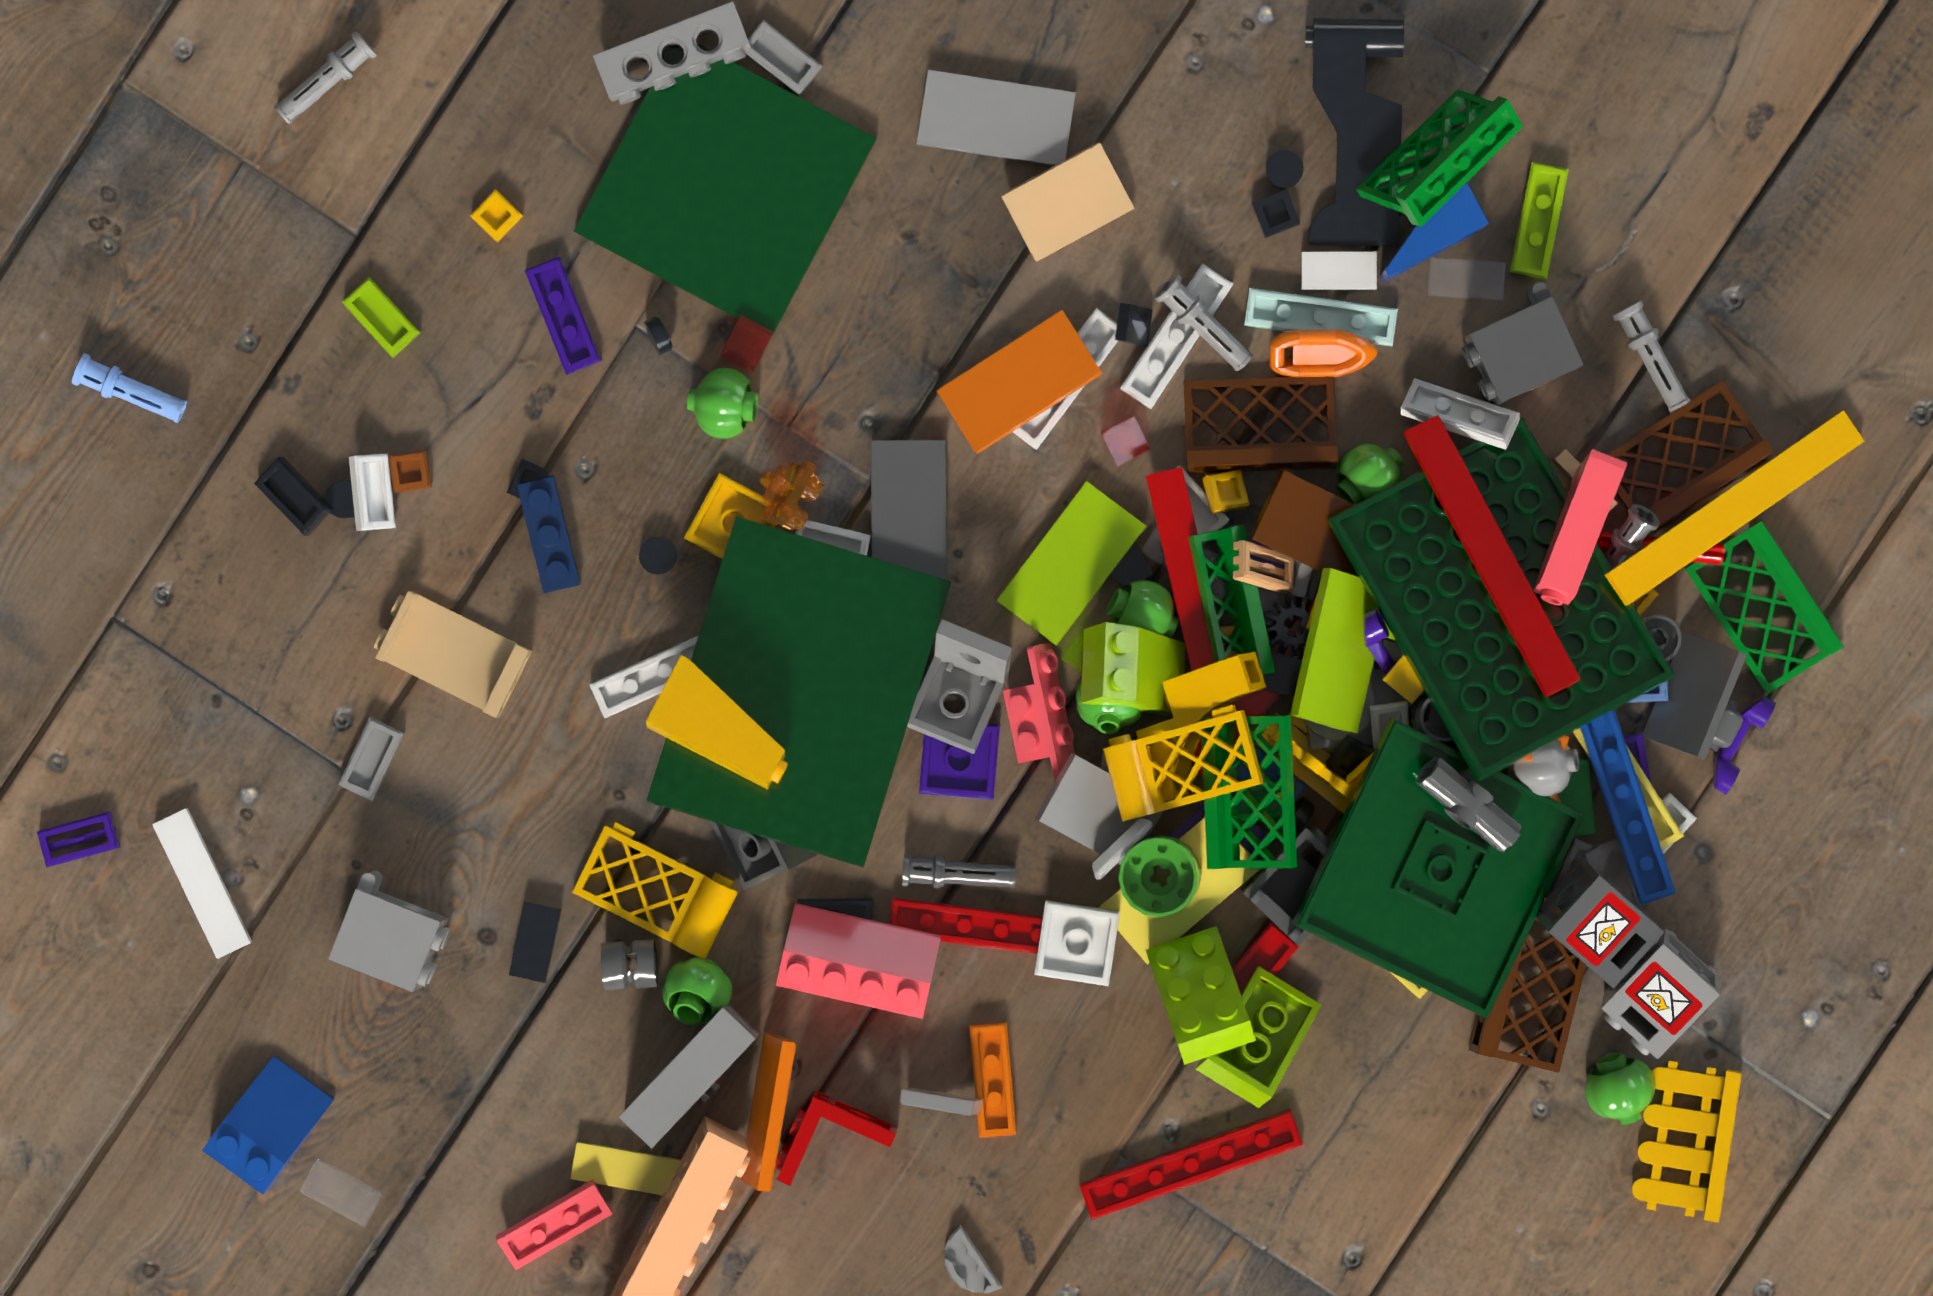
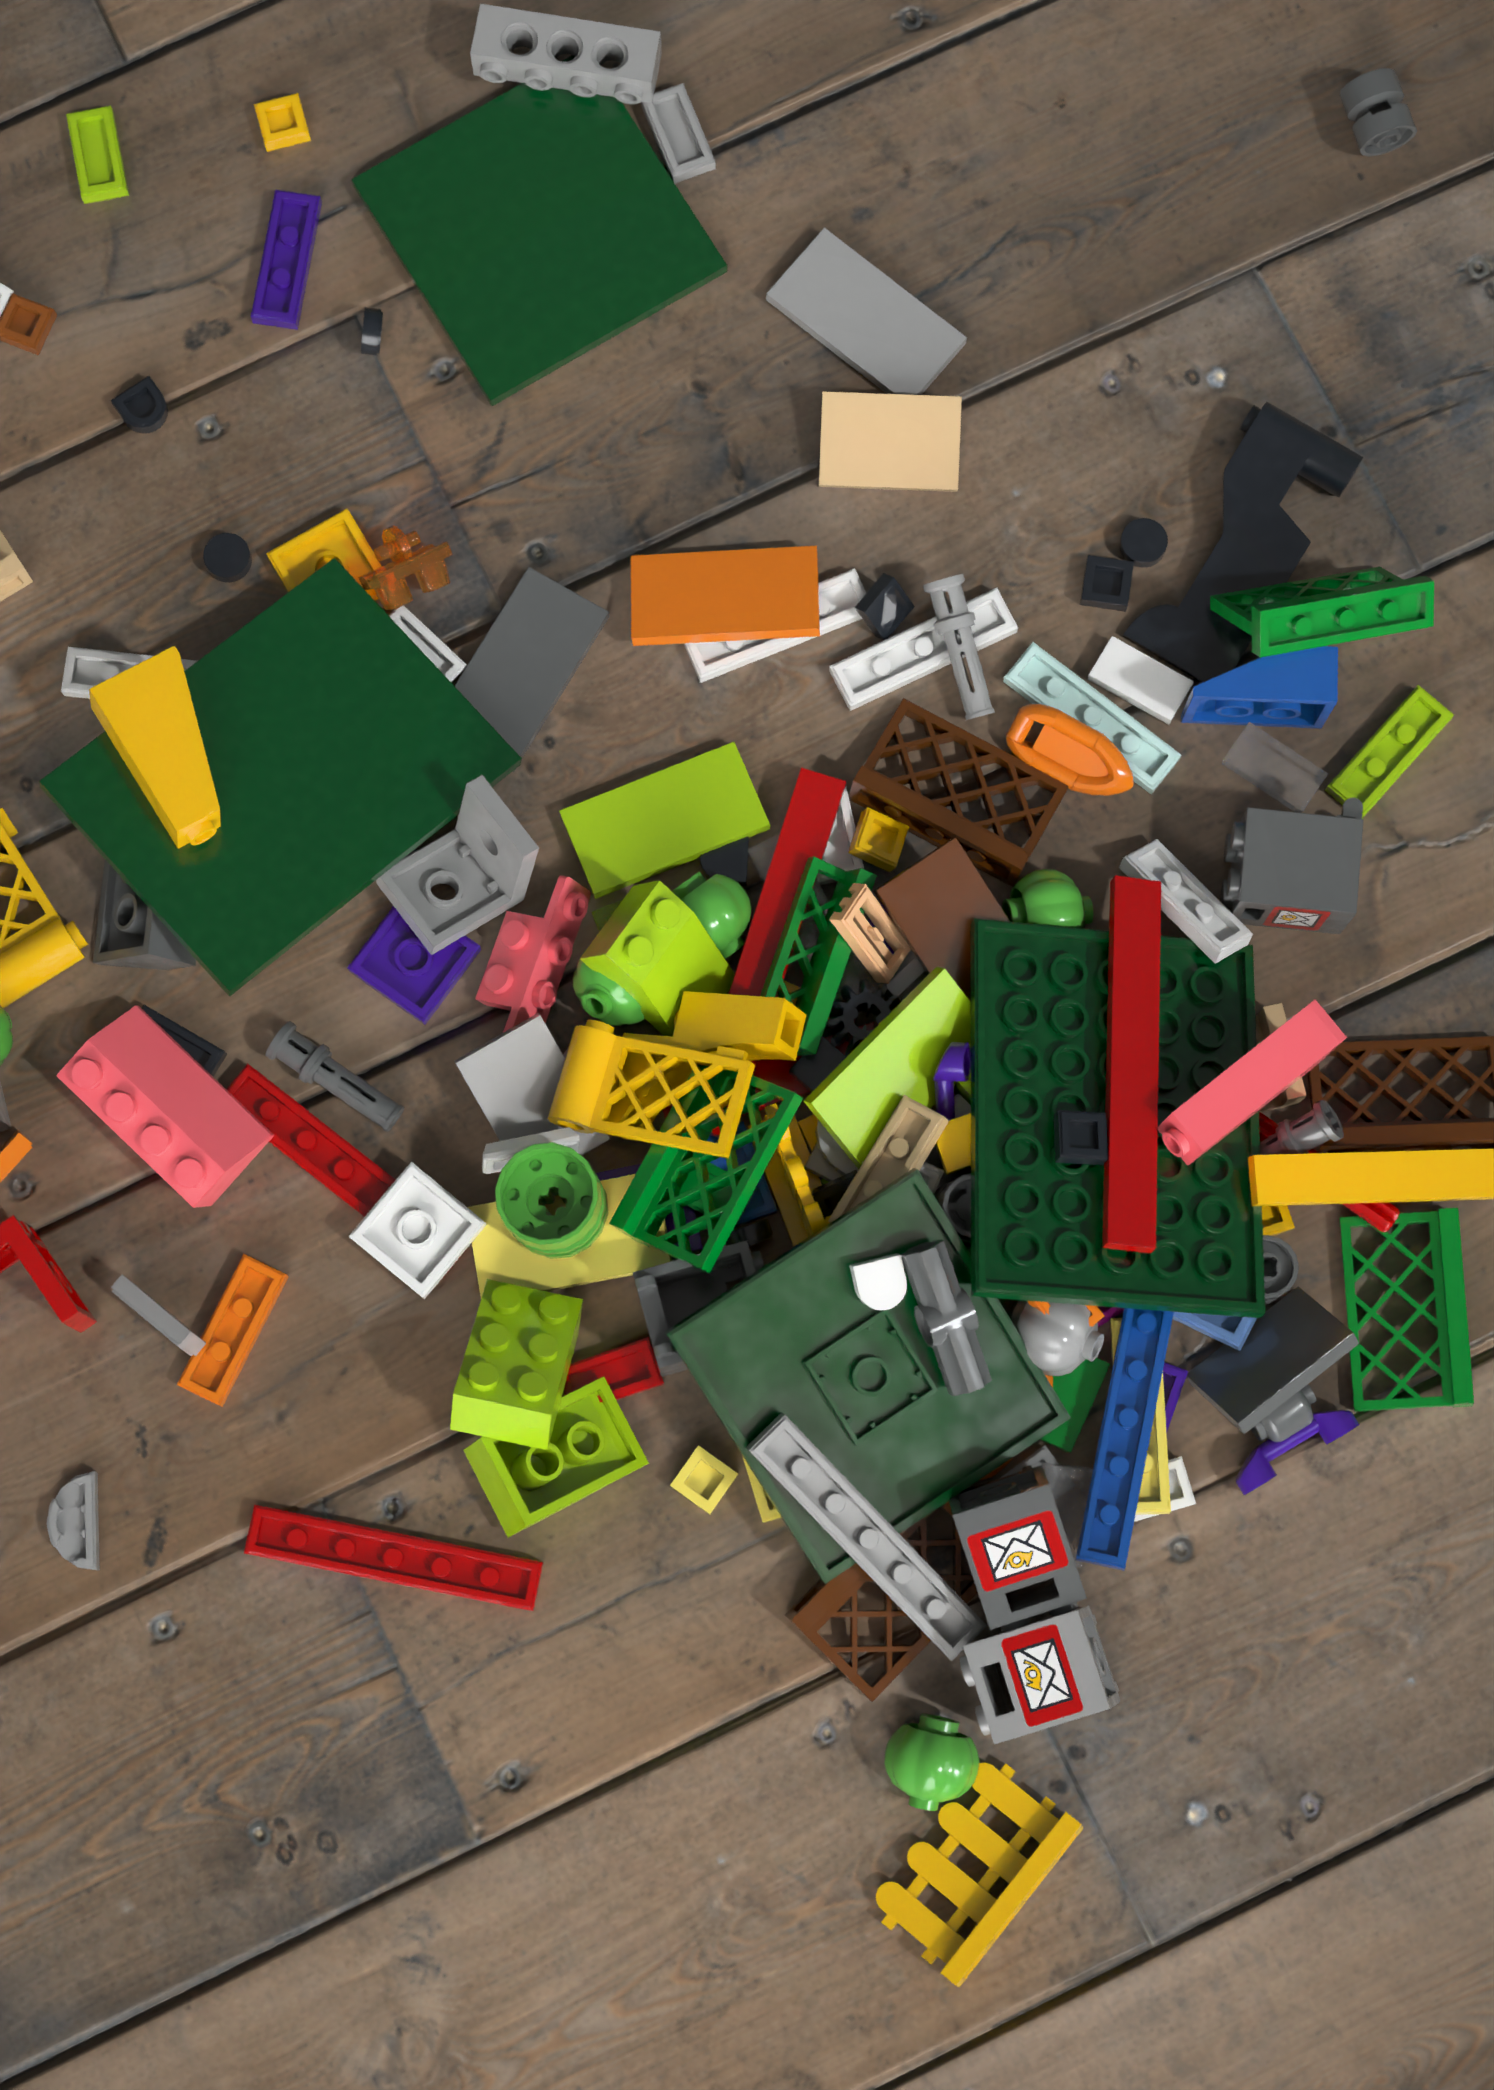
camera: 30 degrees right, 10 degrees down
(548, 534) = (126, 466): dark blue plate -> none
(723, 403) = (395, 435): bright green plant -> none
(747, 344) = (459, 393): clear red slope -> none
(1125, 440) = (801, 723): clear red slope -> none
(1364, 993) = (704, 1480): none -> light yellow tile
(1370, 714) = (899, 1148): none -> tan tile
(1412, 807) = (880, 1281): none -> white tile
(1488, 631) = (1080, 1137): none -> black tile
(1497, 973) = (866, 1536): none -> light grey tile
(1676, 395) = (1429, 939): light grey pin -> none

